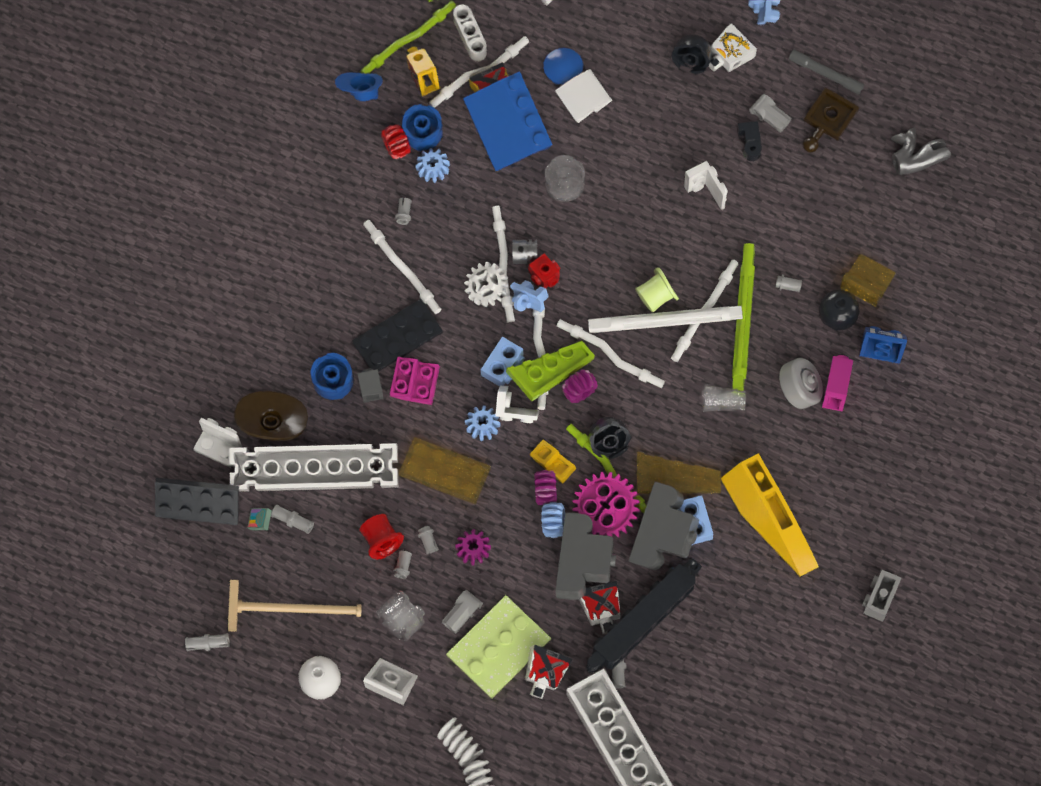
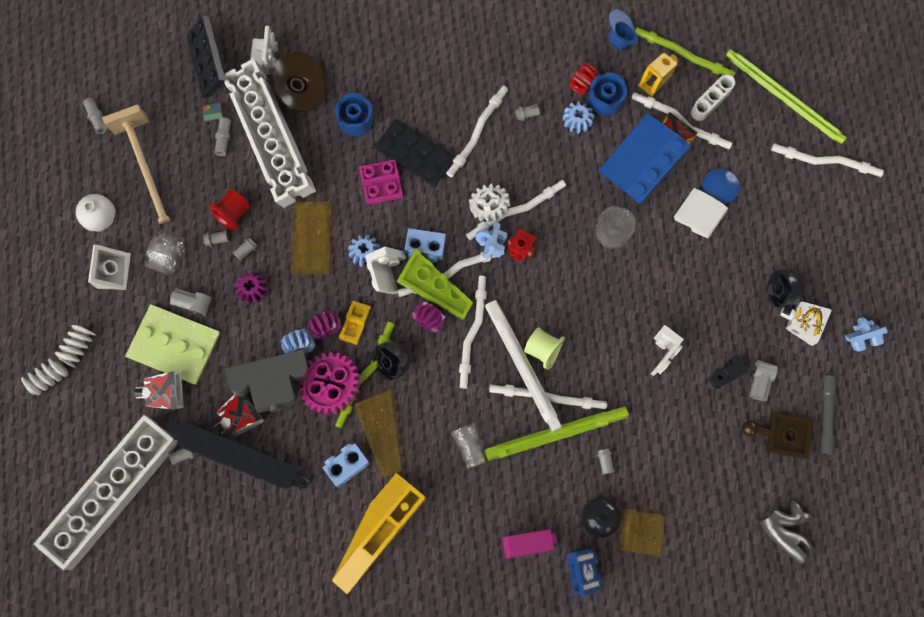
camera: 65 degrees right, 5 degrees up
(370, 385) = (359, 147): dark grey brick -> none
(528, 253) = (533, 221): flat silver piece -> none
(663, 529) = (323, 441): dark grey brick -> none
(801, 383) = (513, 510): light grey wheel -> none

